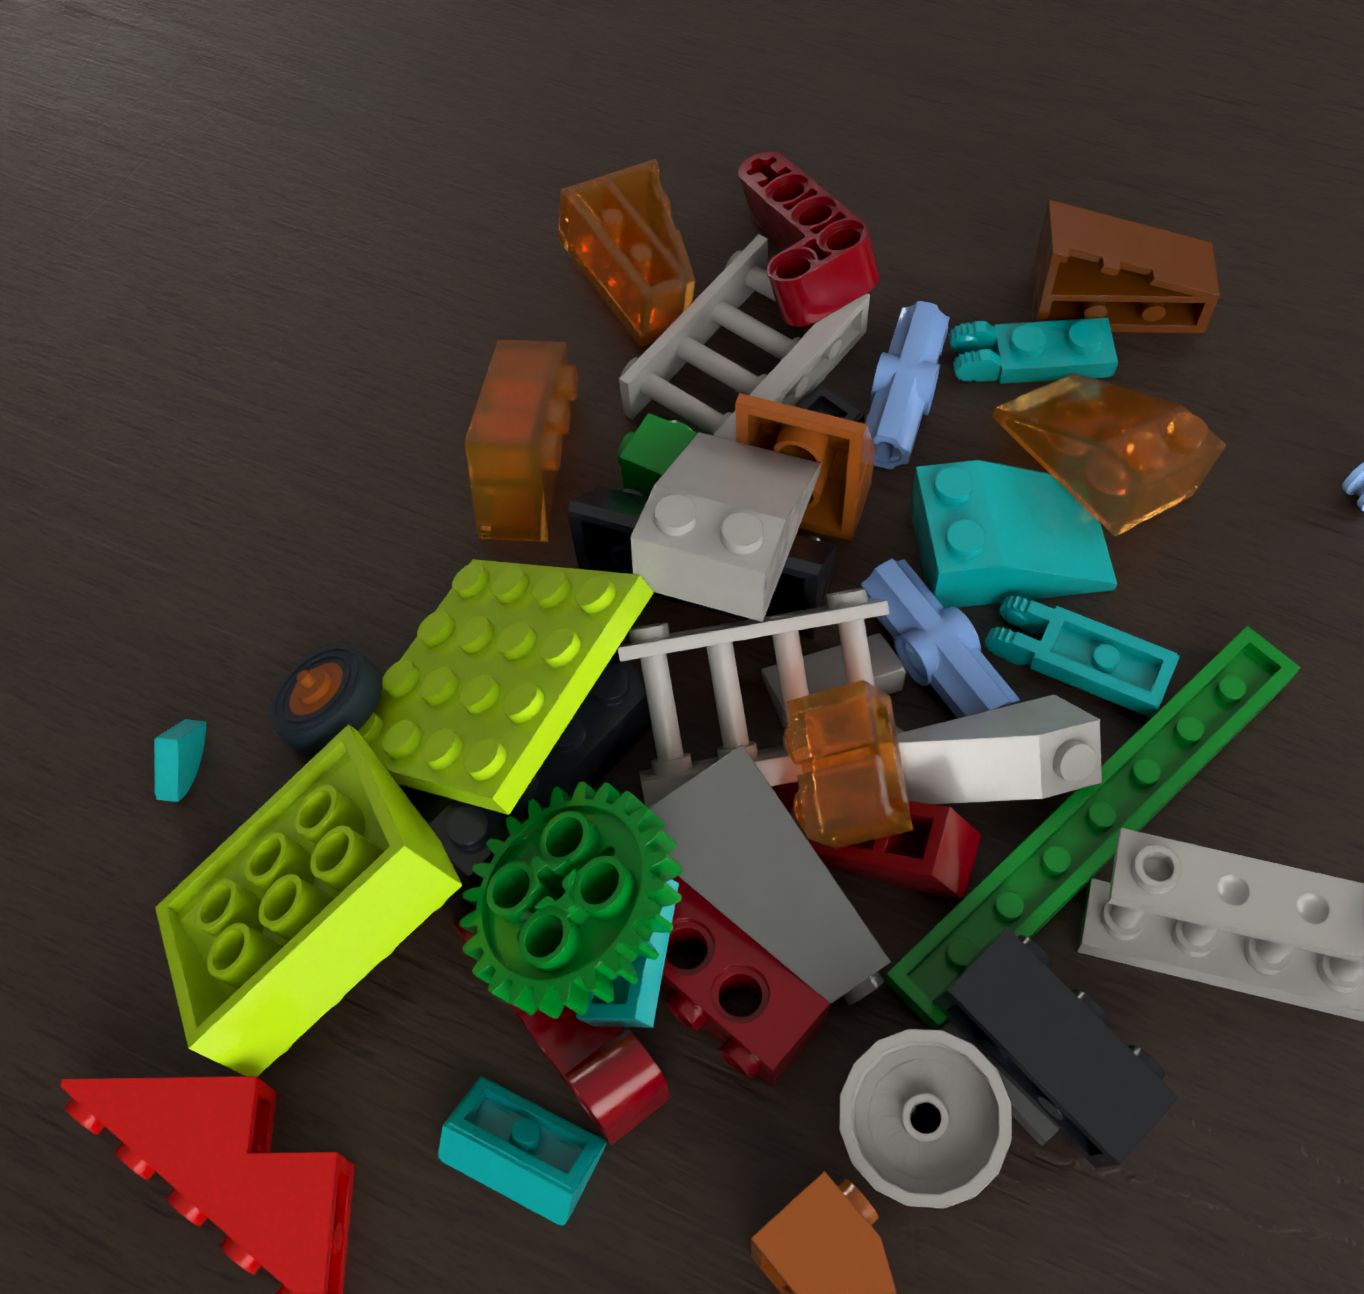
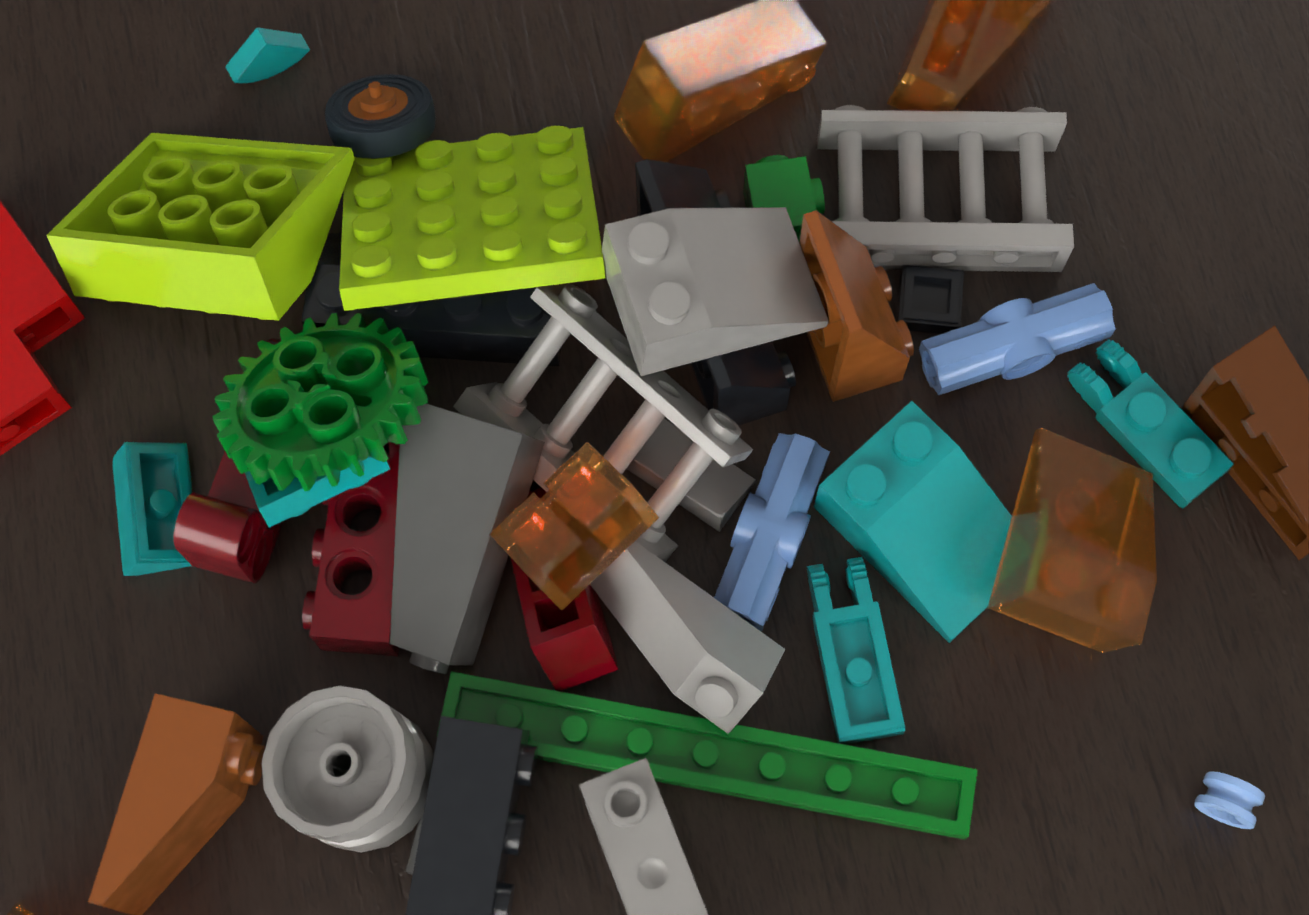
camera: 50 degrees right, 10 degrees up
(825, 245) = (1078, 191): dark red beam -> none

